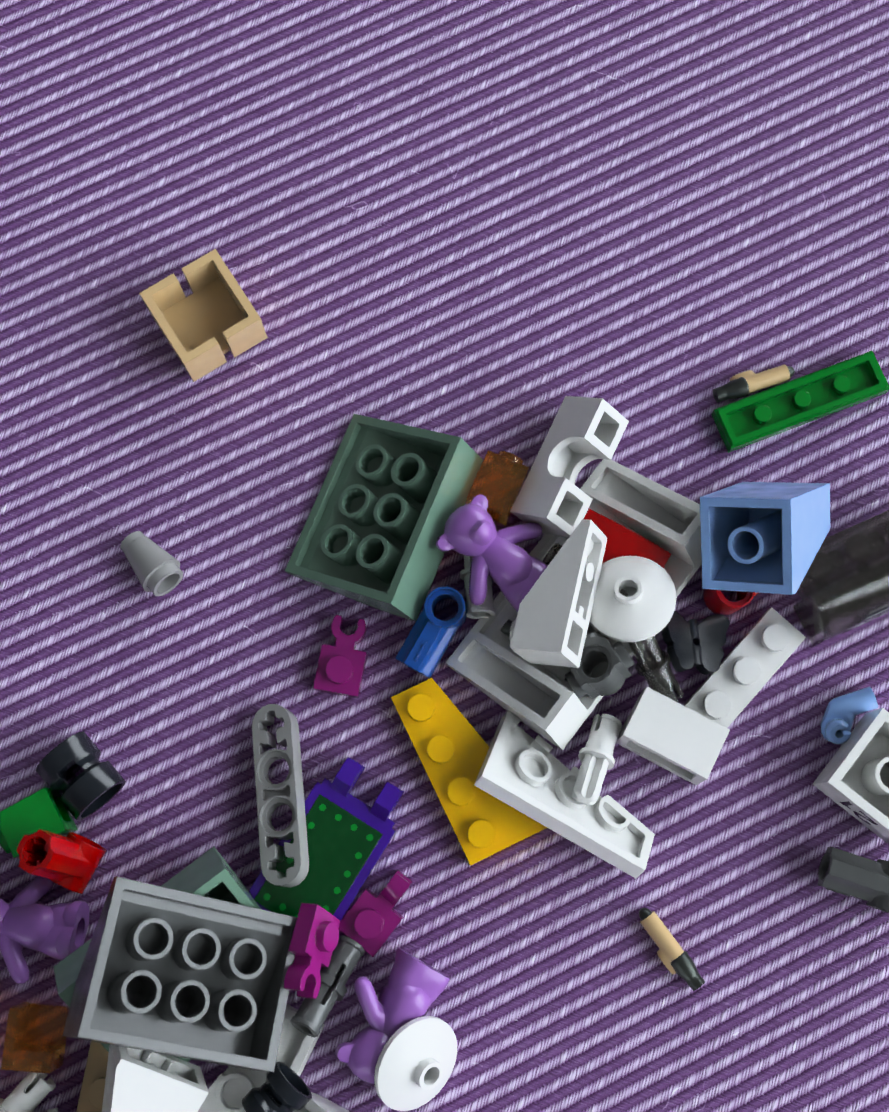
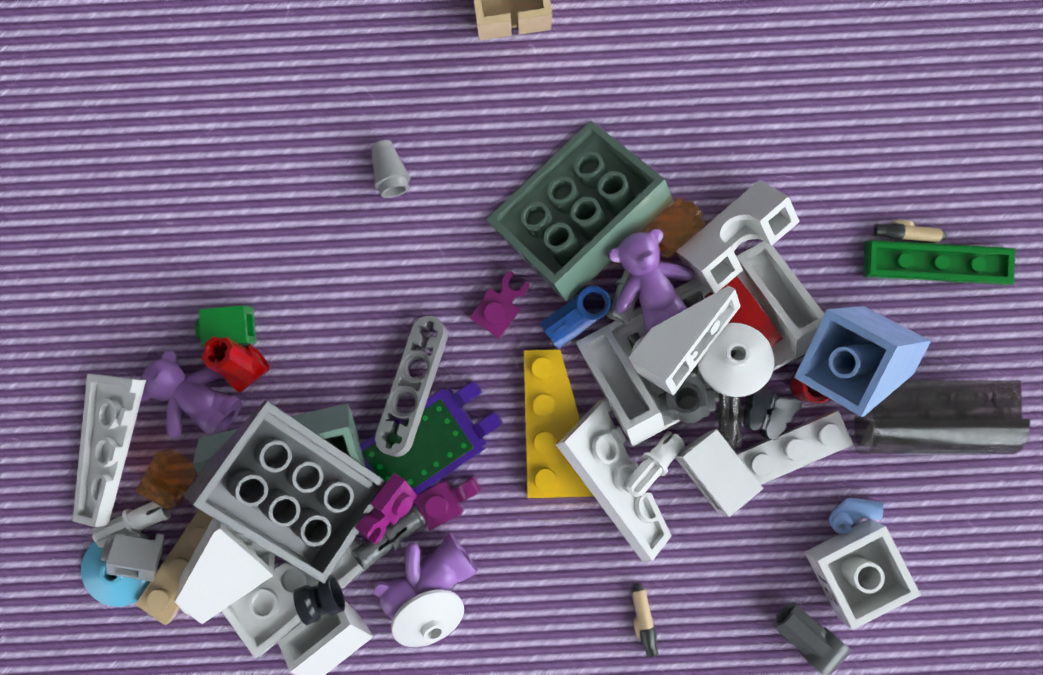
camera: 25 degrees right, 10 degrees up
(88, 790) = (276, 320): black wheel -> none

